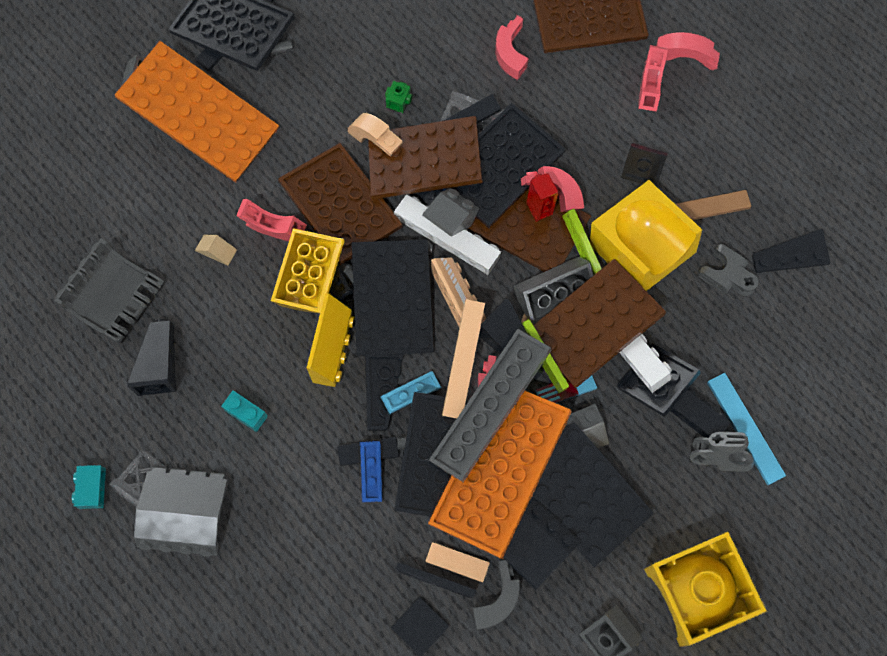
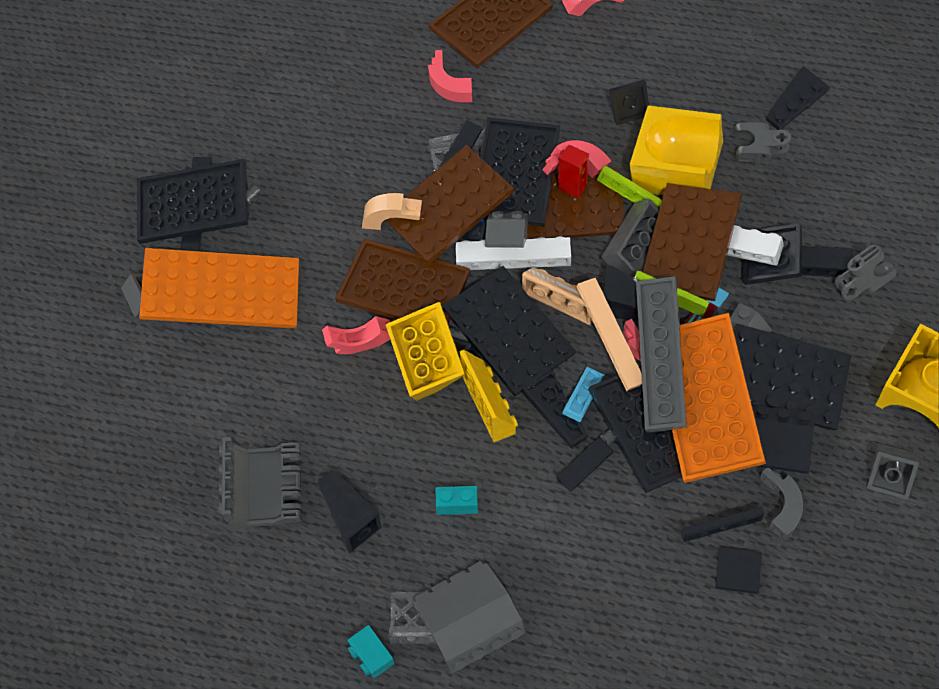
camera: 30 degrees left, 10 degrees down
(216, 248) = (323, 389): tan slope -> none
(371, 471) = (601, 476): blue tile -> none
(398, 96) = (385, 172): green brick -> none
(457, 562) = (727, 500): light nougat tile -> none
(652, 78) = (586, 43): coral arch -> none
(716, 205) = (713, 94): medium nougat tile -> none
(743, 422) = (842, 238): medium azure tile -> none

